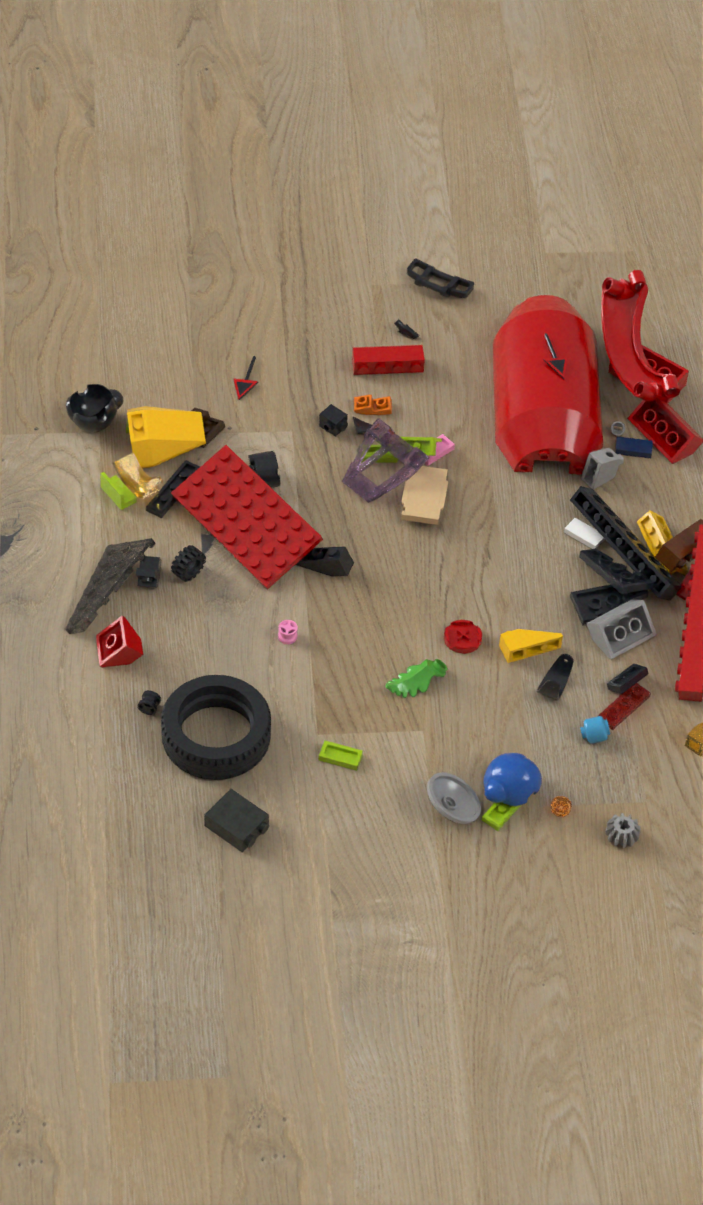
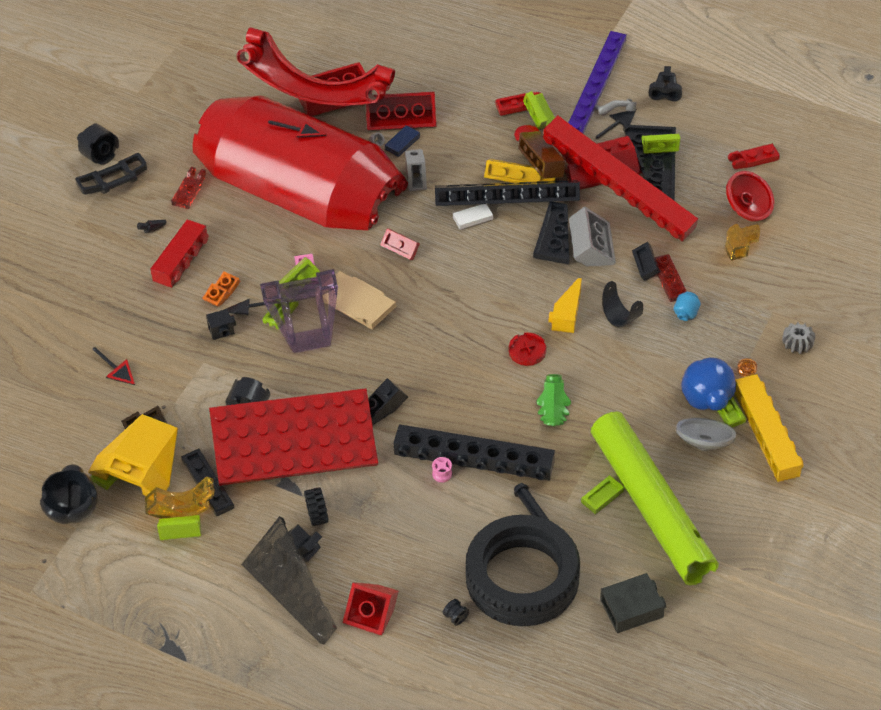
camera: 55 degrees left, 0 degrees up
(290, 713) = (522, 491): none -> black axle
(319, 646) = (475, 452): none -> black brick
(353, 788) = (654, 498): none -> lime piece
(459, 252) = (97, 144): none -> black brick
(465, 334) = (188, 189): none -> clear red hinge
(497, 846) = (768, 428): none -> yellow brick
(509, 496) = (400, 244): none -> plate
(614, 573) = (532, 214): black wing -> none

